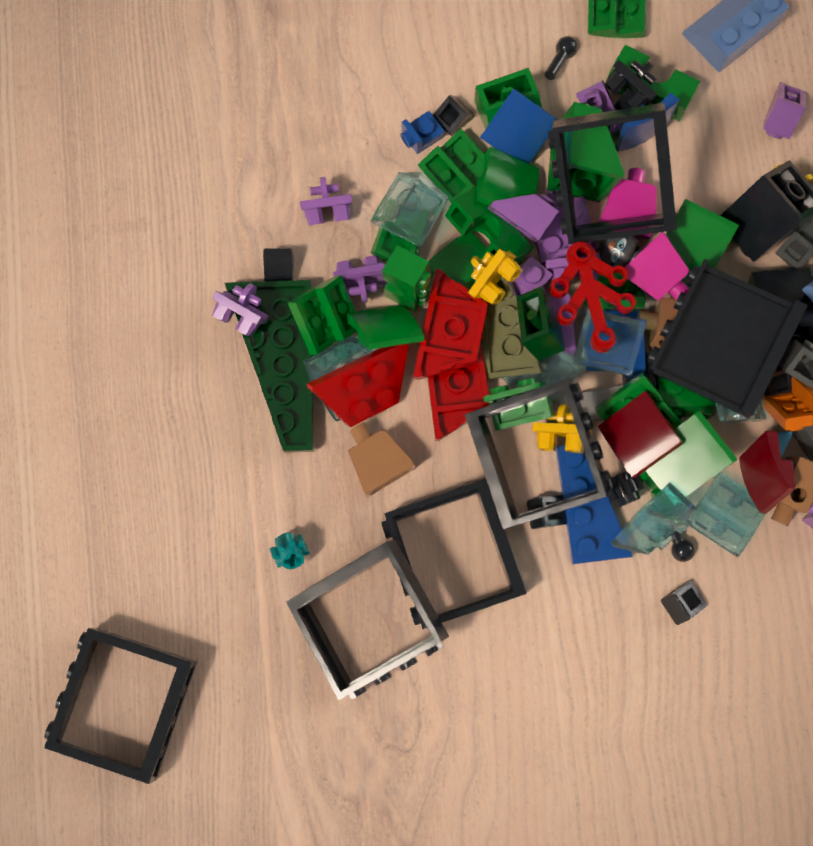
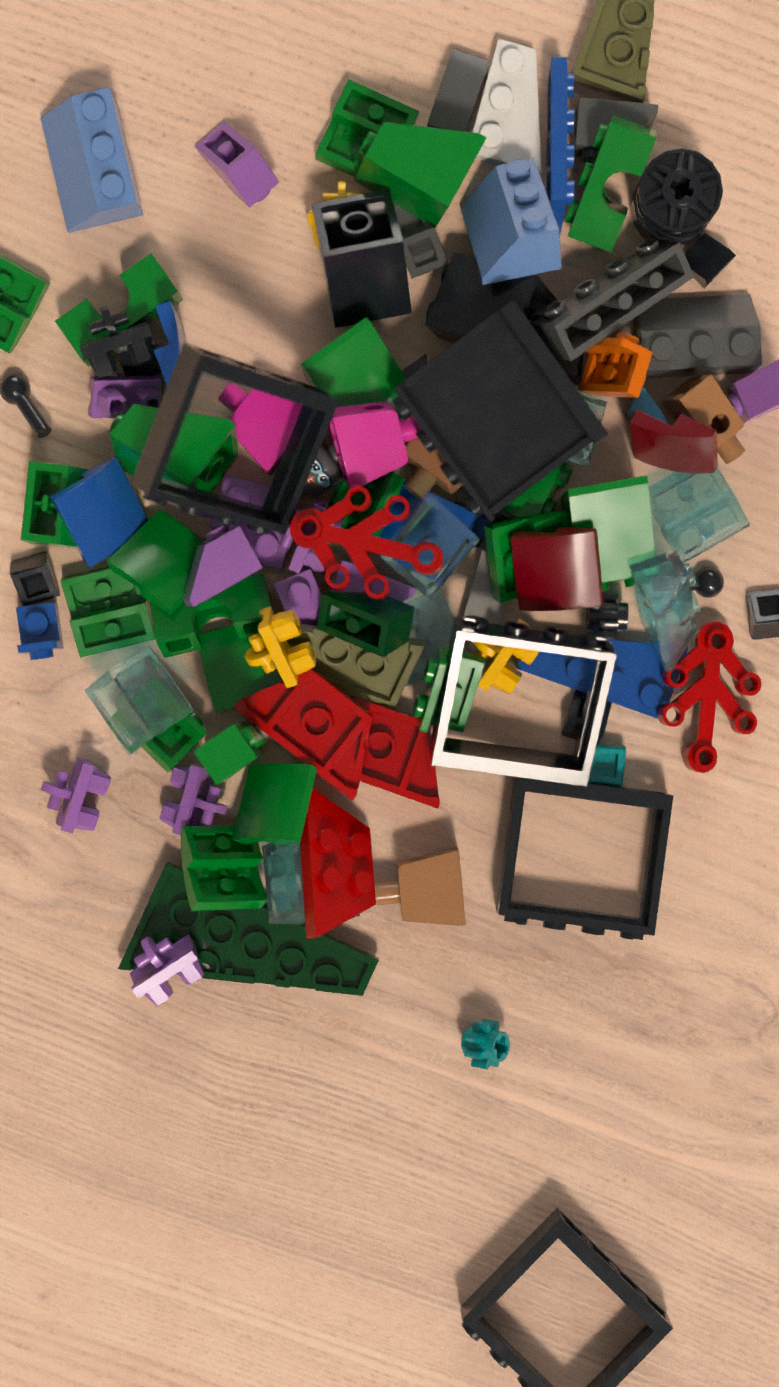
camera: 70 degrees left, 10 degrees up
(278, 264) = (126, 891): black slope -> none
(320, 643) = (615, 1058): window -> none
(523, 539) = (608, 765): none -> teal tile
(610, 586) = (709, 690): none -> red plant

